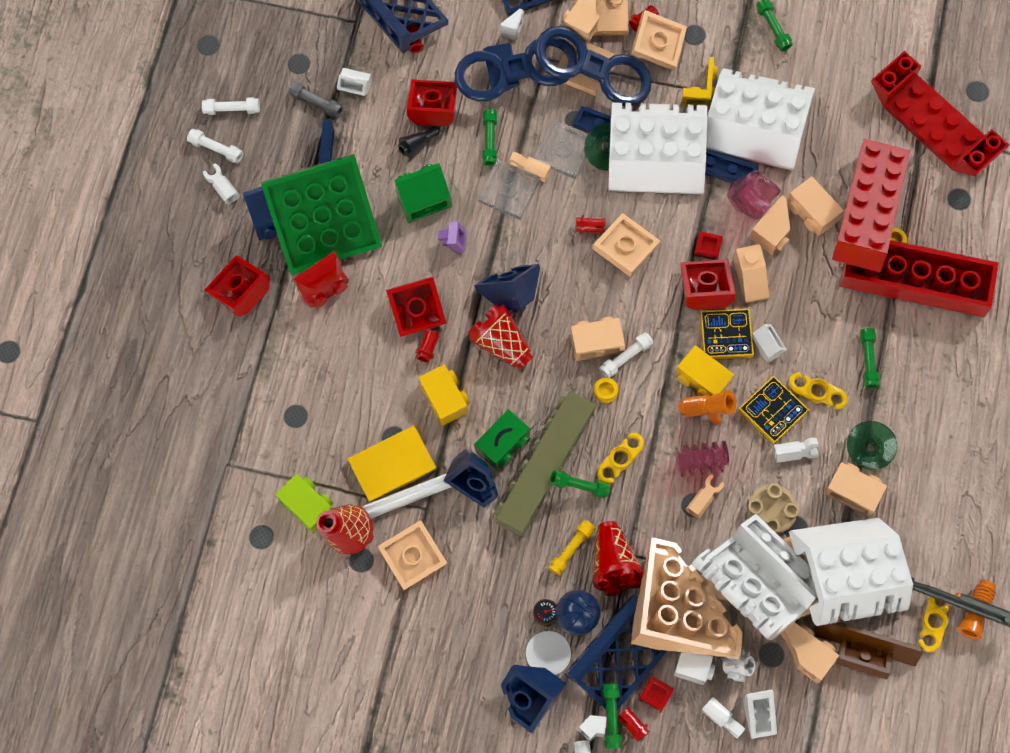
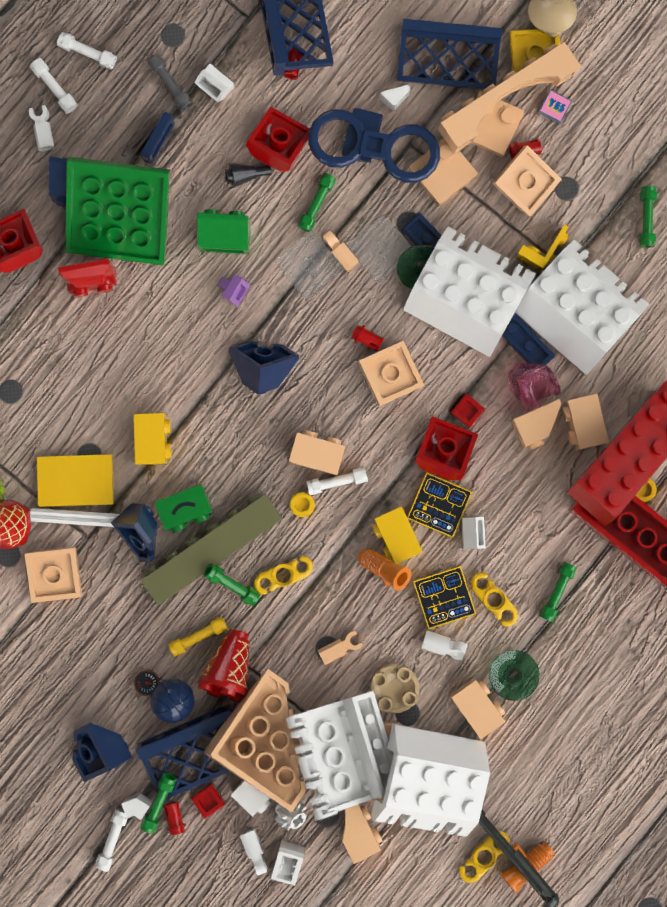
camera: 25 degrees right, 15 degrees up
(416, 306) = (165, 340): red slope -> none
(427, 346) = (159, 384): red pin -> none
(501, 337) = (228, 410): red cone -> none
(548, 651) = (132, 718): white sticker -> none
(592, 65) = (448, 179): dark blue bar -> none
(702, 458) = (354, 613): clear pink piece -> none
(751, 273) = (492, 460): light nougat slope -> none
(868, 650) = (411, 858): reddish brown bracket -> none

